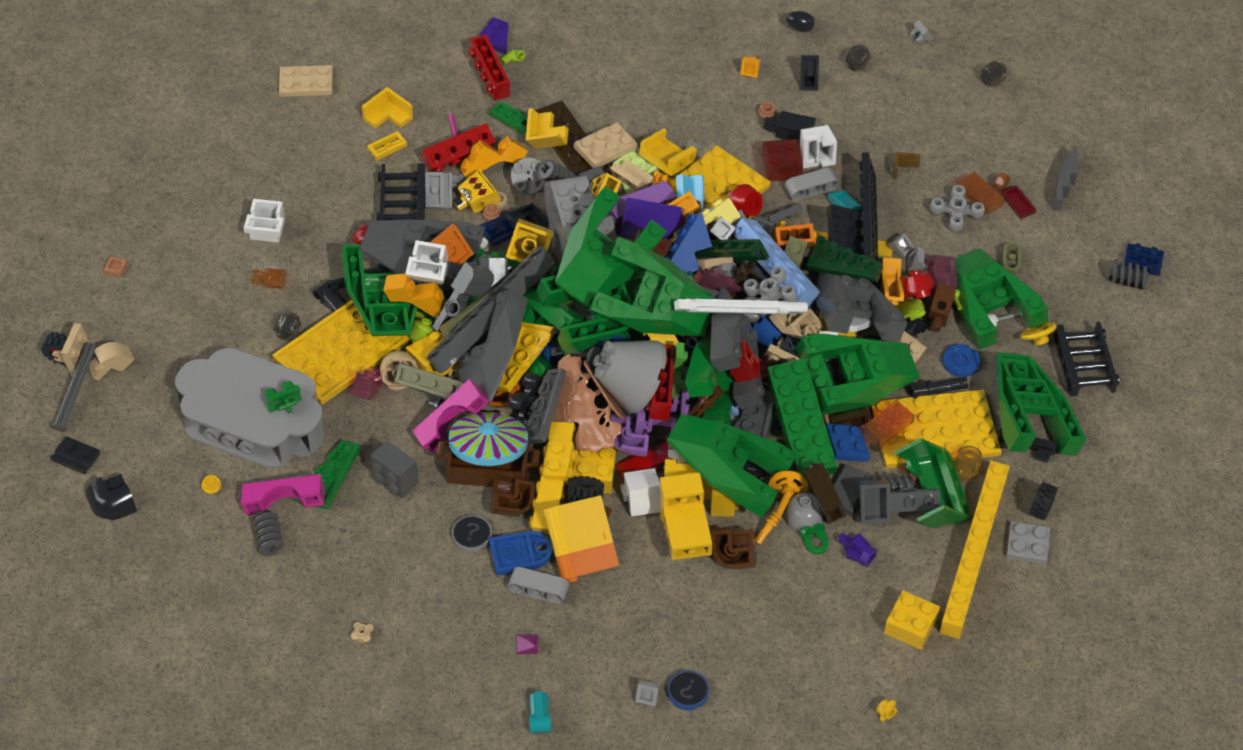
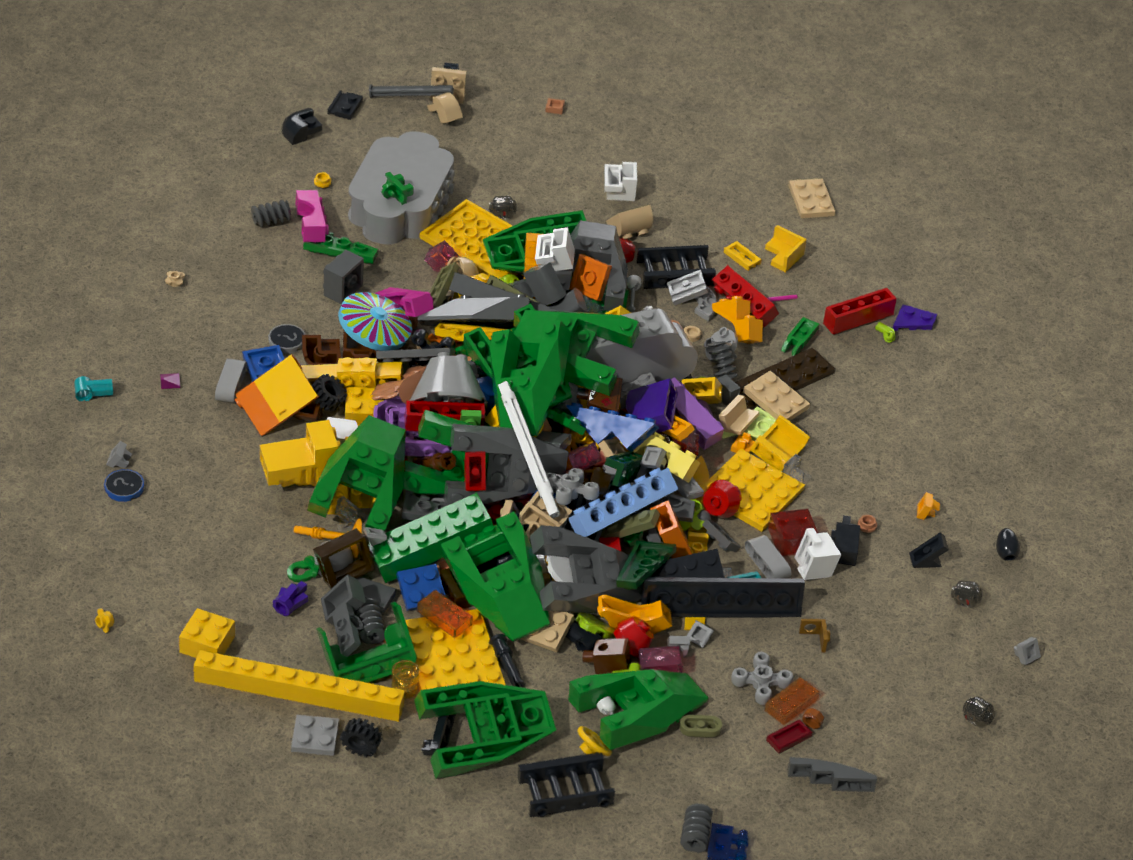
camera: 80 degrees right, 10 degrees down
(272, 278) = (558, 194): clear orange plate -> none
(330, 222) = (632, 221): none -> tan brick
(476, 193) = (691, 313): yellow torso -> none
(541, 132) = (783, 348): yellow panel -> none
(694, 184) = (722, 456): medium azure panel -> none
(734, 548) = (279, 505): reddish brown brick -> none
(806, 459) = (375, 536): none -> light grey slope
(961, 360) = (545, 679): blue tile -> none

